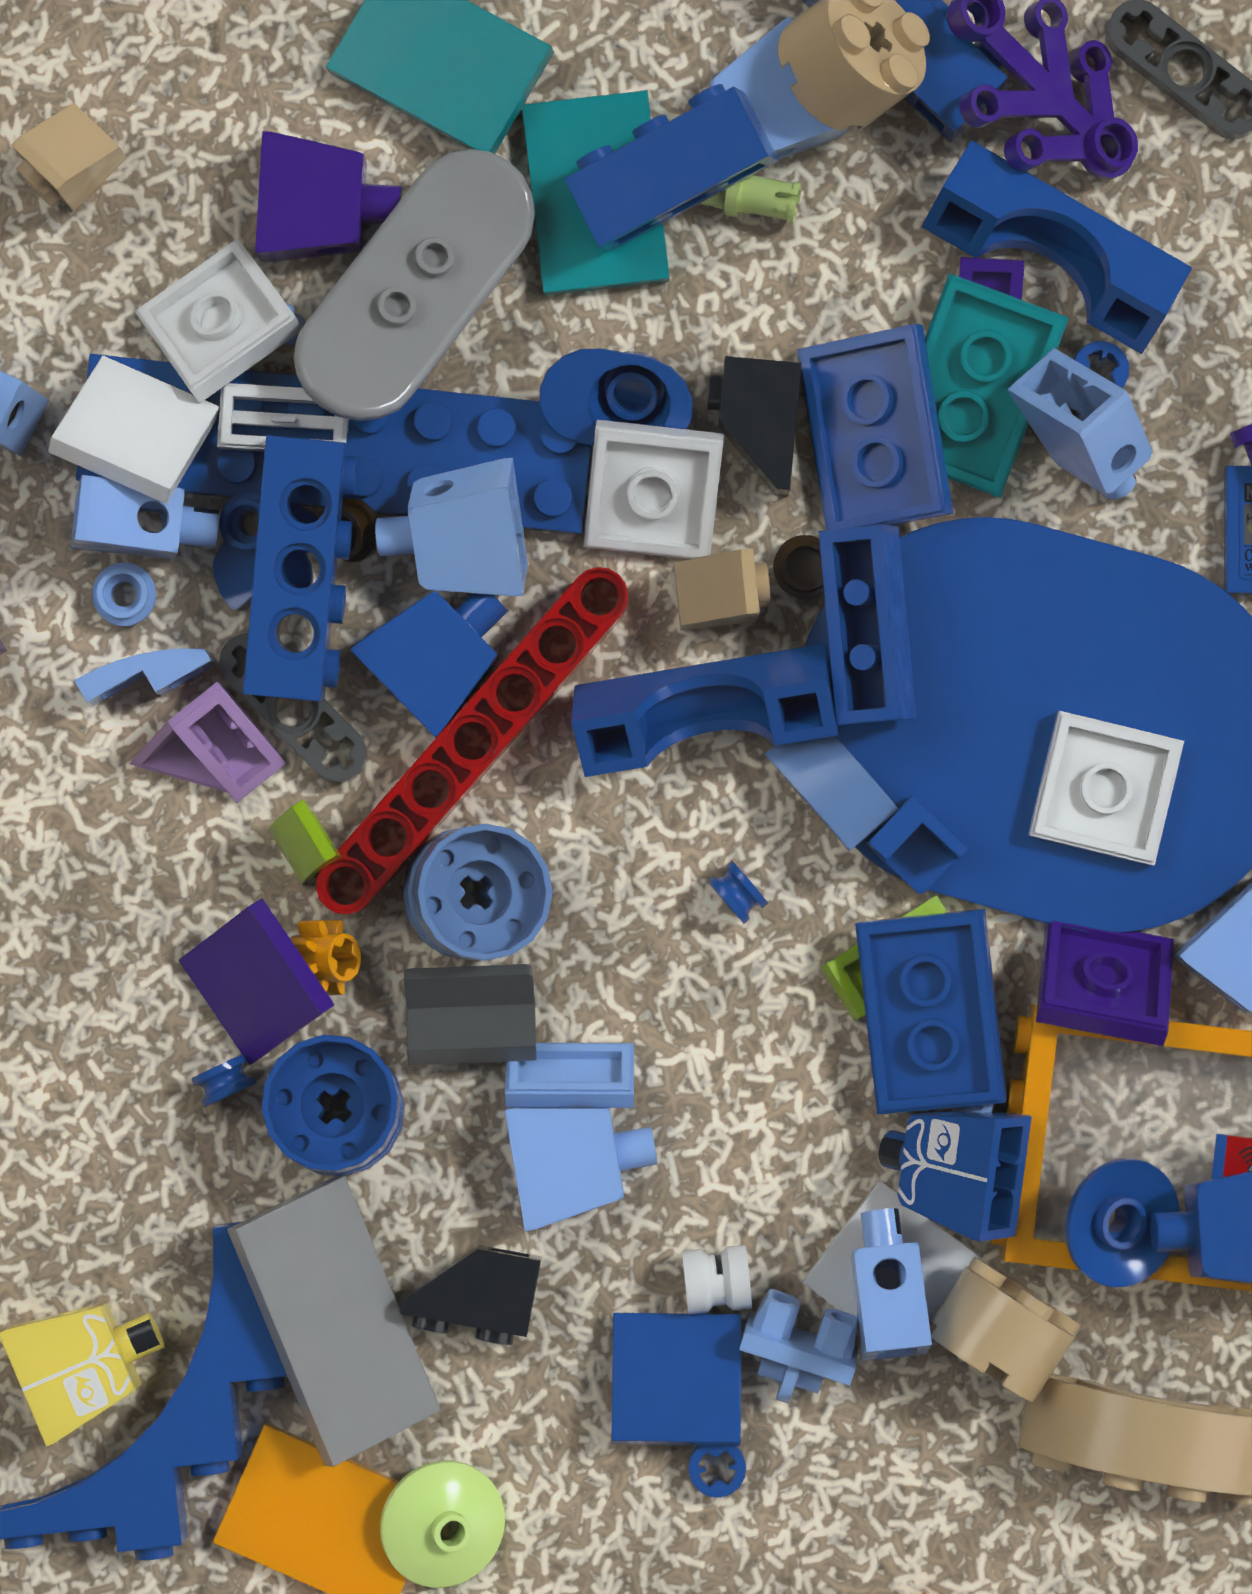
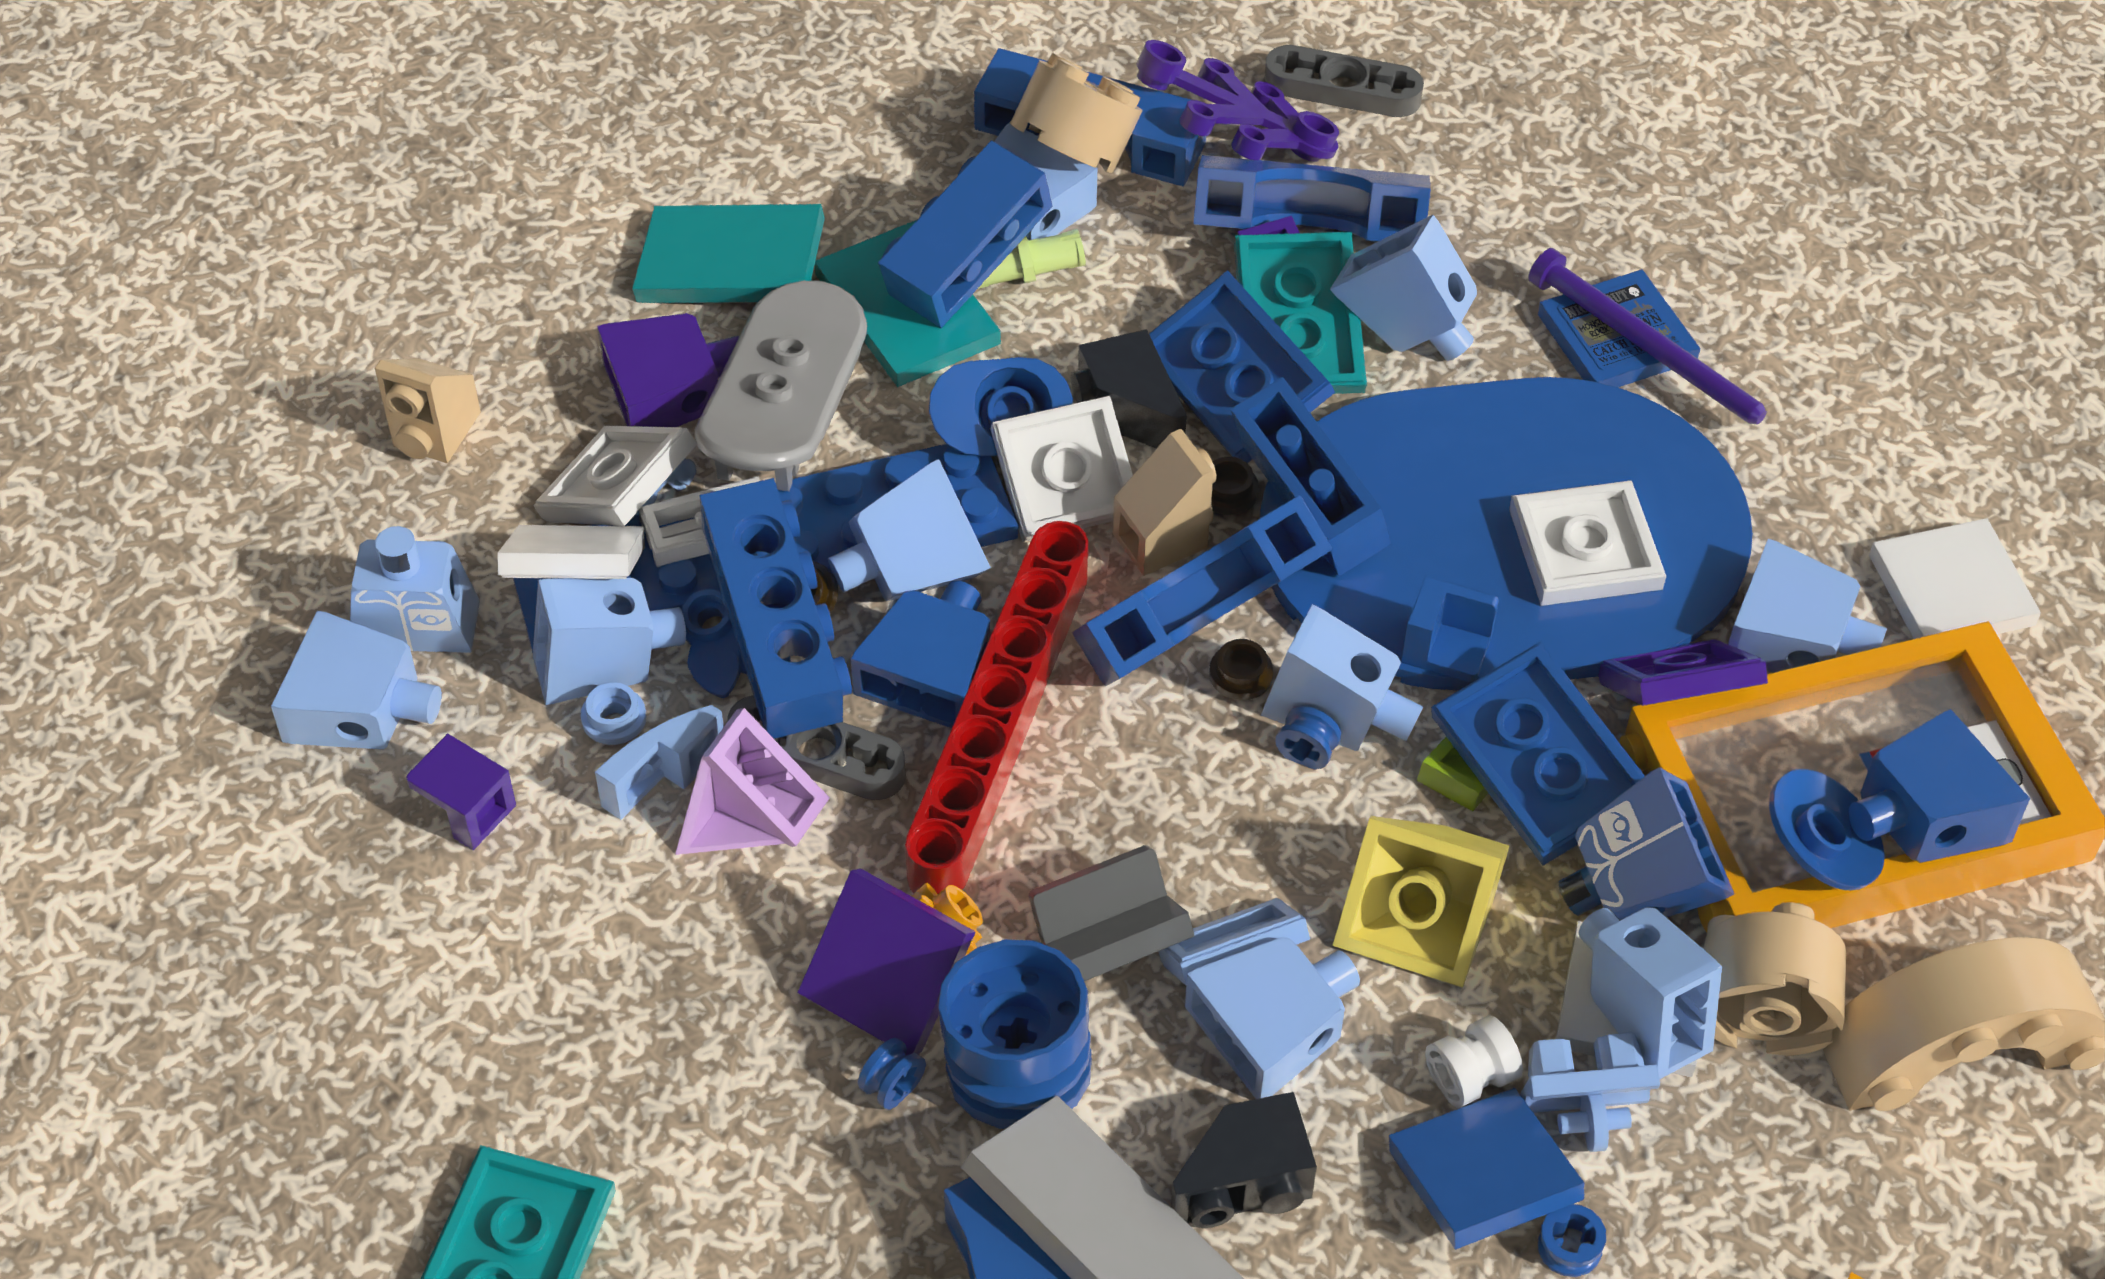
camera: 25 degrees left, 35 degrees down
(303, 841) = (877, 818): lime slope -> none
(514, 892) = (1065, 797): medium blue wheel -> none
(715, 786) = (1241, 670): none -> dark brown plate
(757, 1104) = (1420, 897): none -> light yellow slope
(772, 844) = (1344, 678): none -> light blue torso
(834, 787) = (1365, 606): medium blue slope -> none

